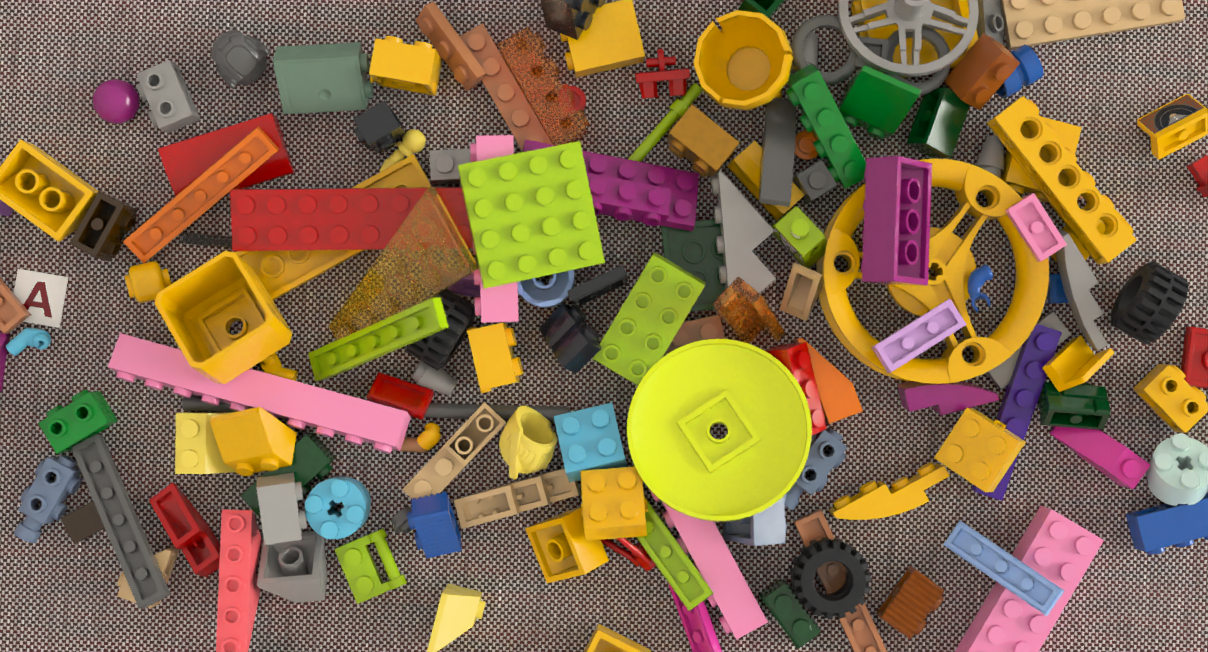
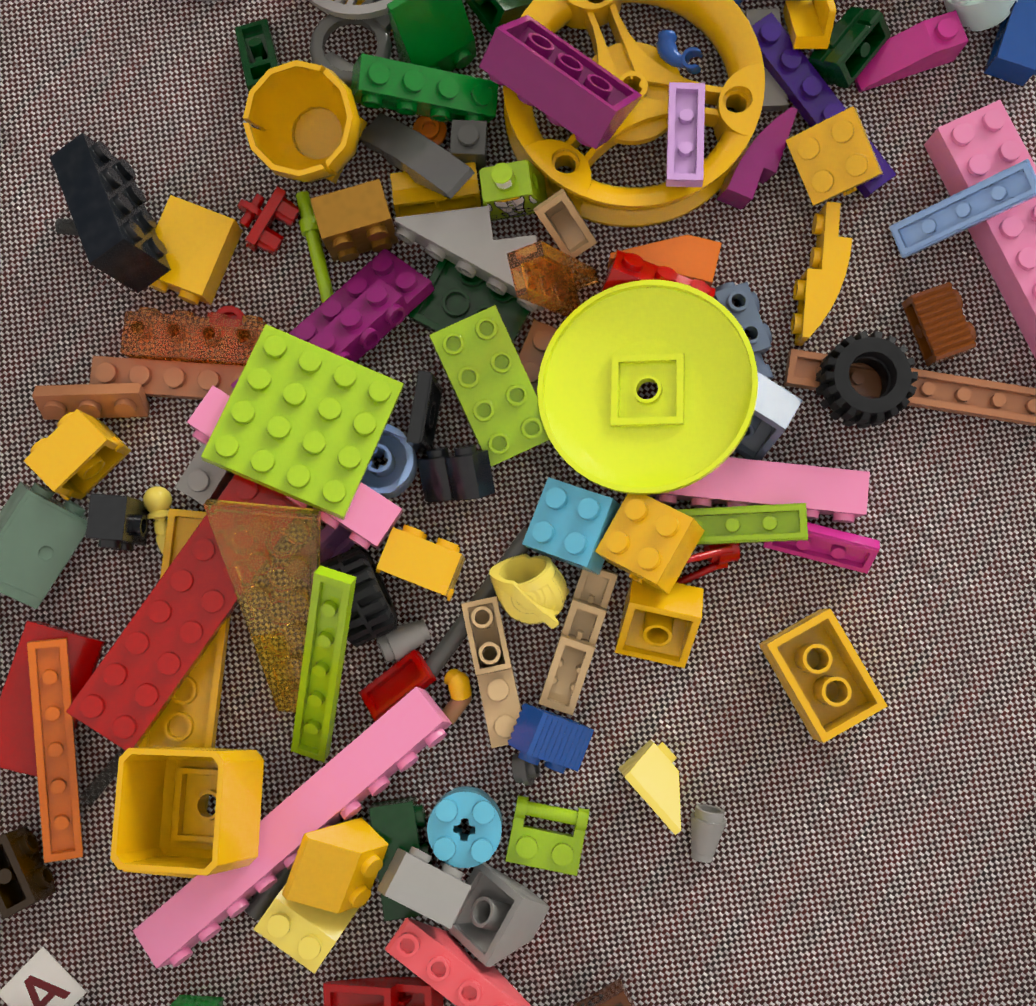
camera: 50 degrees left, 5 degrees down
(146, 281) = (97, 869): yellow head -> none
(274, 367) = (274, 794): yellow arm -> none
(790, 613) = (873, 446): dark green brick -> none

